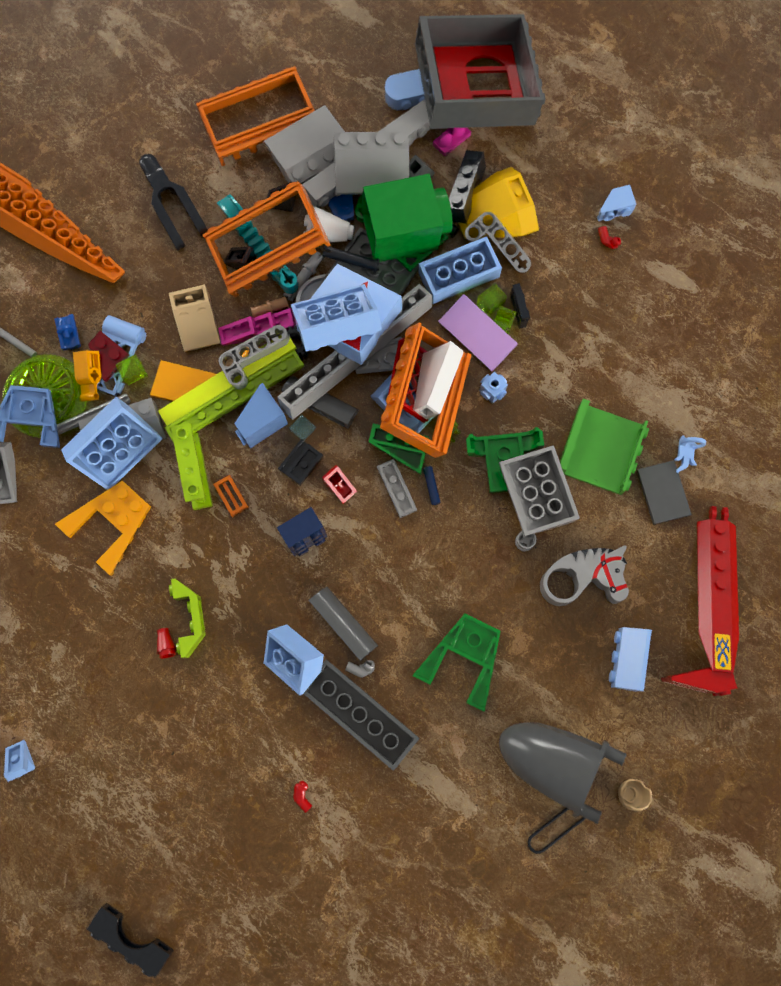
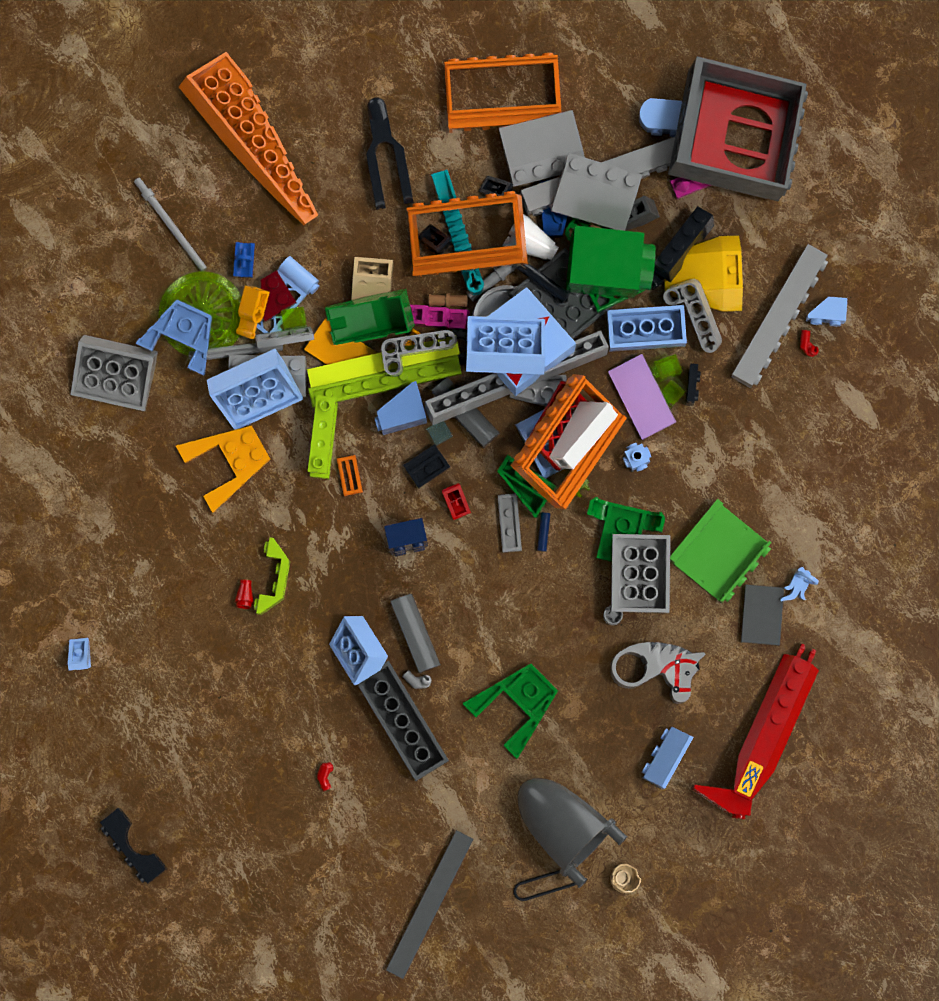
camera: 20 degrees right, 5 degrees up
(127, 388) = (284, 337): none -> light grey tile
(200, 341) = (370, 317): none -> green piece
(450, 893) = (429, 905): none -> dark grey tile
(574, 223) = (779, 316): none -> light grey brick

